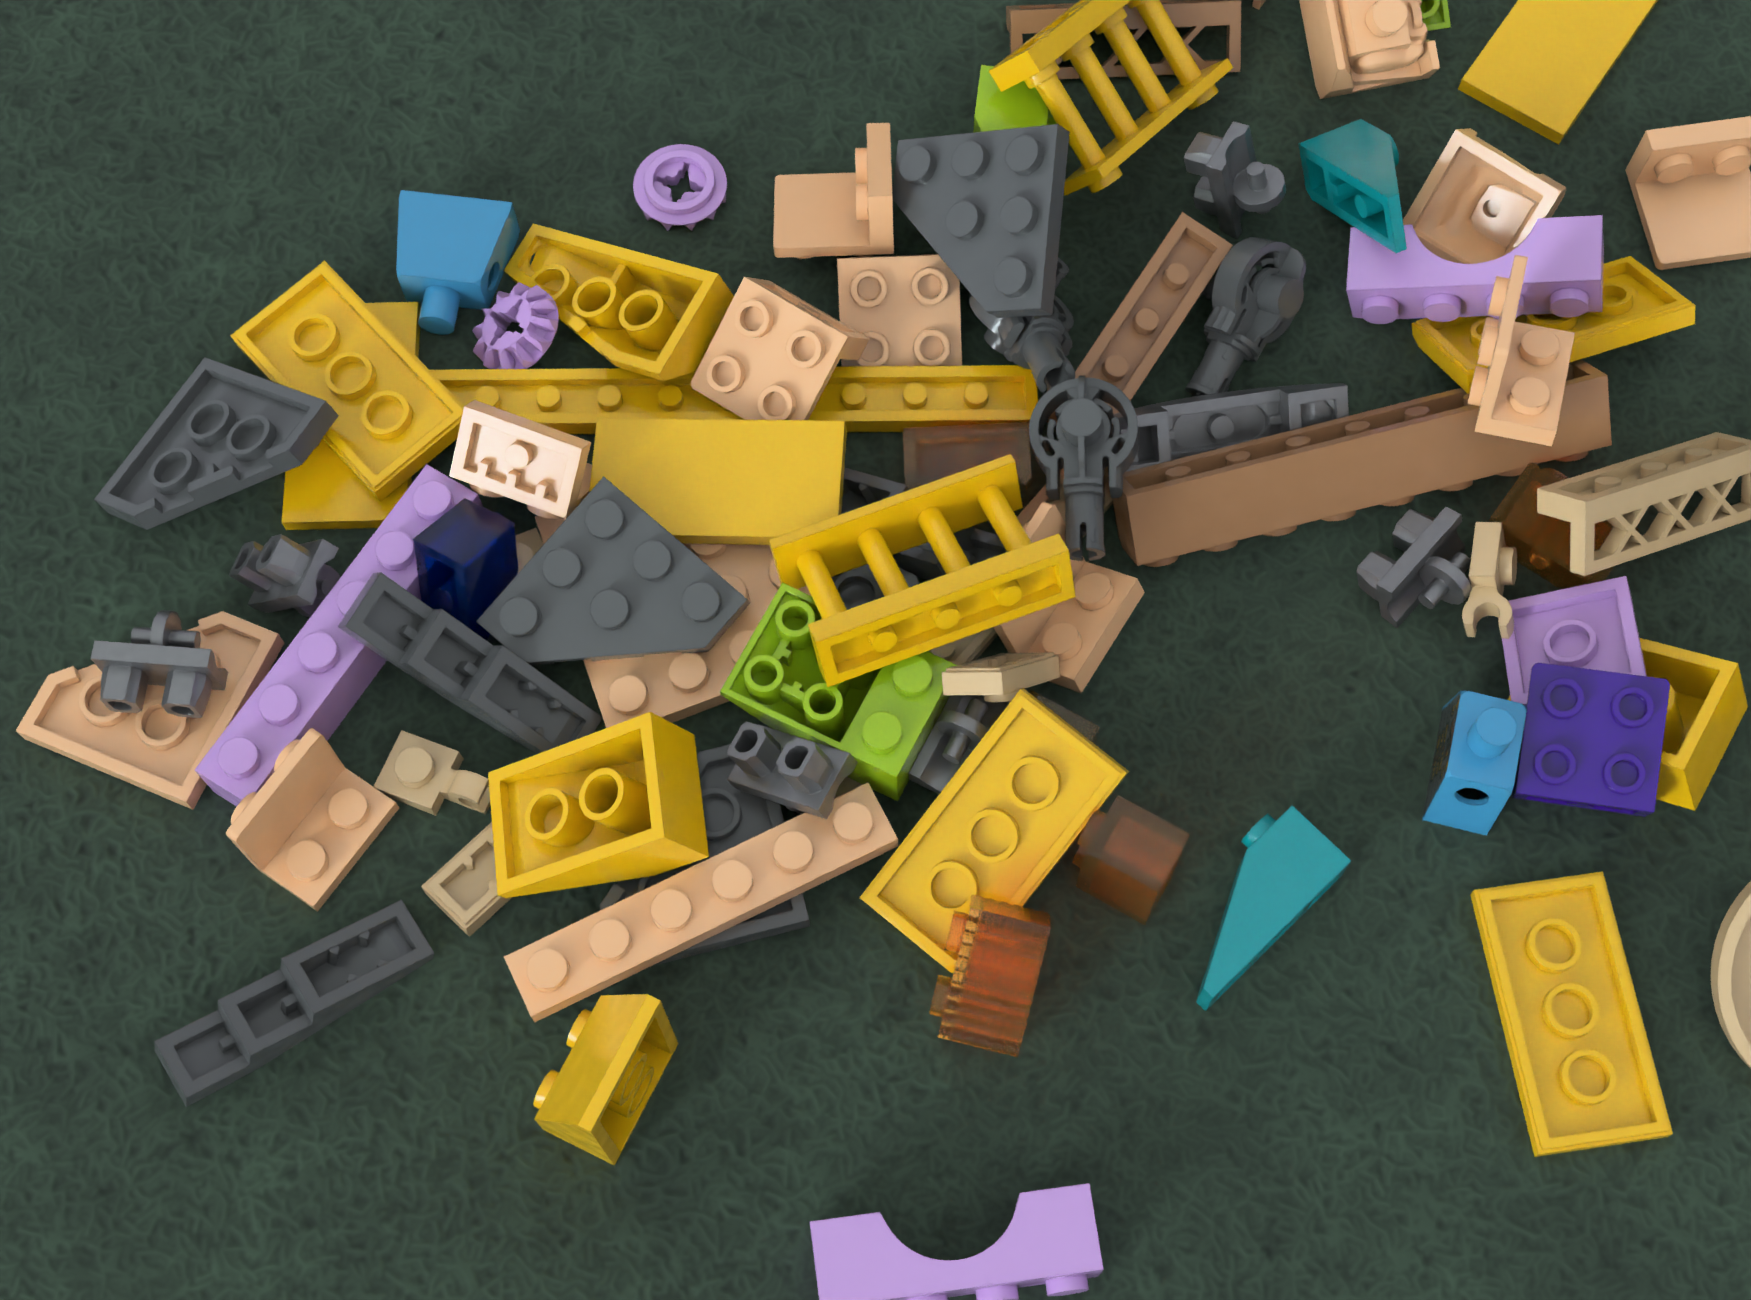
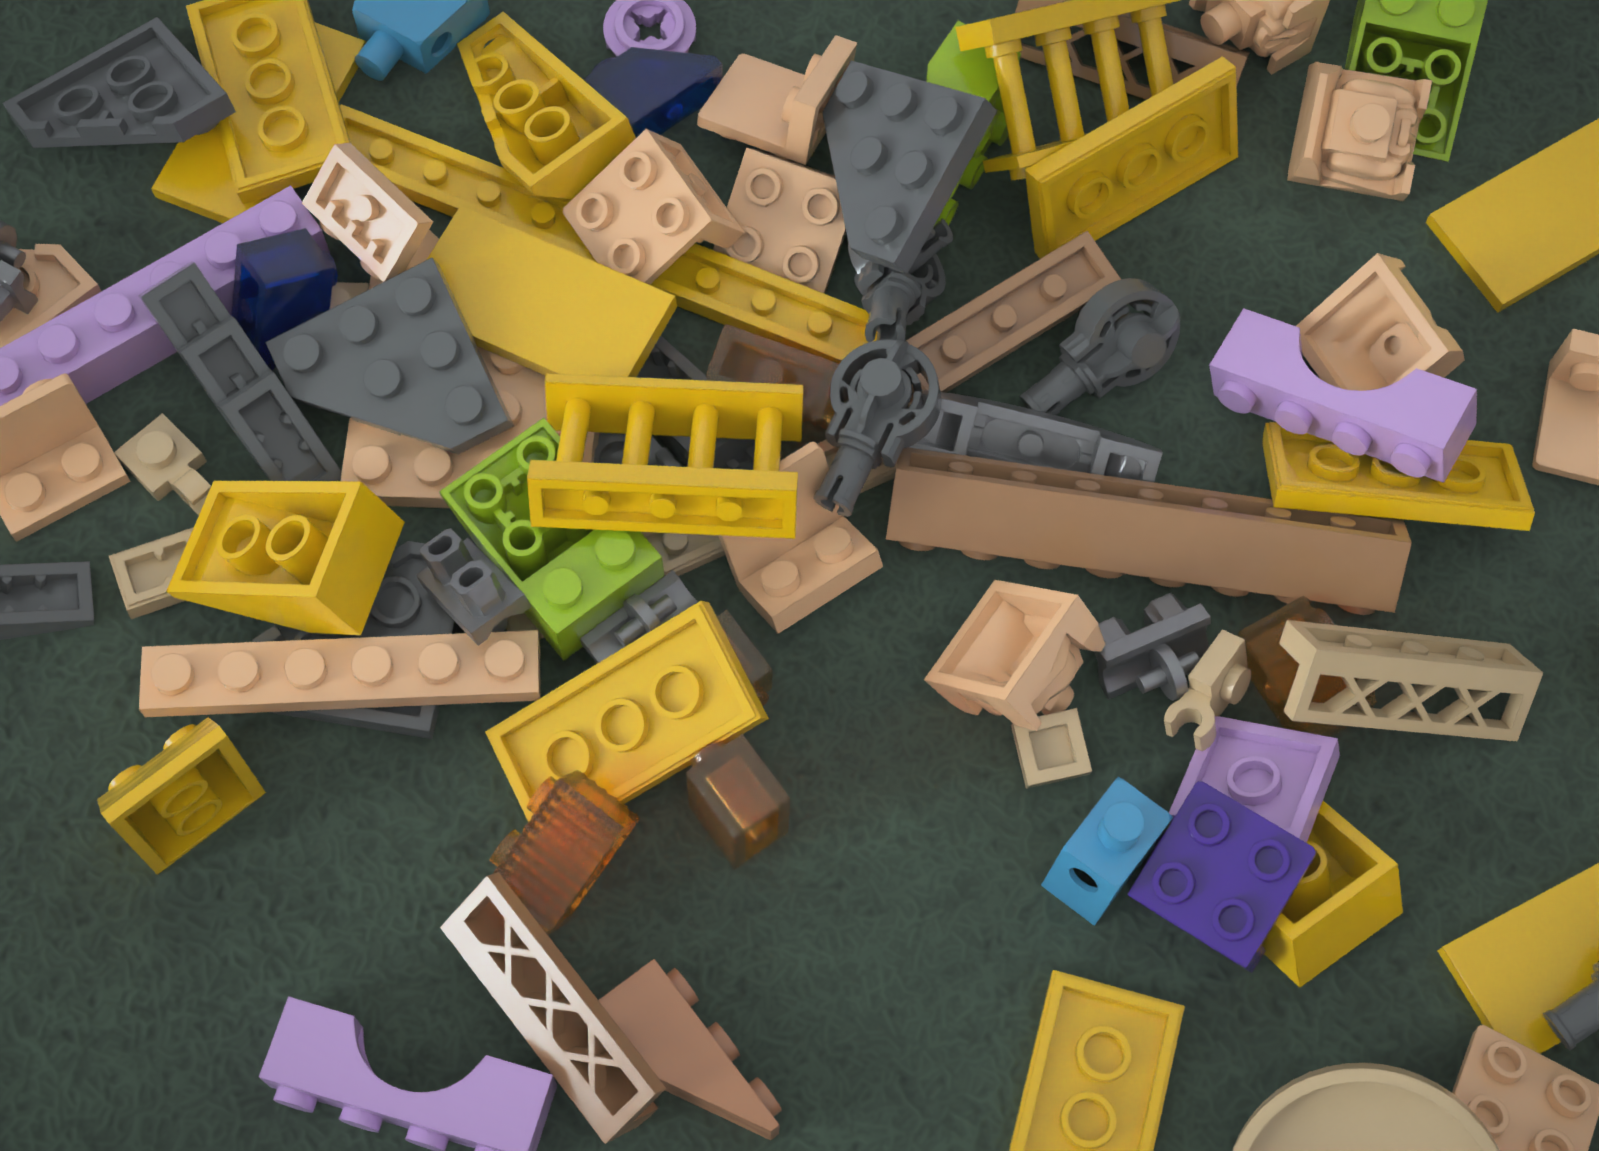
camera: 20 degrees right, 0 degrees up
(286, 574) = (127, 233): flat silver hips -> none
(508, 350) = (458, 94): lavender gear -> none
(718, 233) = (656, 85): none -> clear blue slope
(1000, 675) = (700, 582): tan plate -> none
(1056, 1132) = (553, 1009): none -> medium nougat fence
(1175, 1110) = (686, 1055): none -> nougat slope
(1215, 89) = (1135, 159): none -> yellow tile
(1232, 177) = (1154, 217): flat silver hips -> none
(1274, 885) = (862, 886): teal slope -> none
(1307, 619) = (1017, 653): none -> light nougat brick
(1356, 180) = (1275, 267): teal slope -> none
(1374, 692) = (1053, 751): none -> tan plate
(1525, 370) = (1320, 496): light nougat bracket -> none

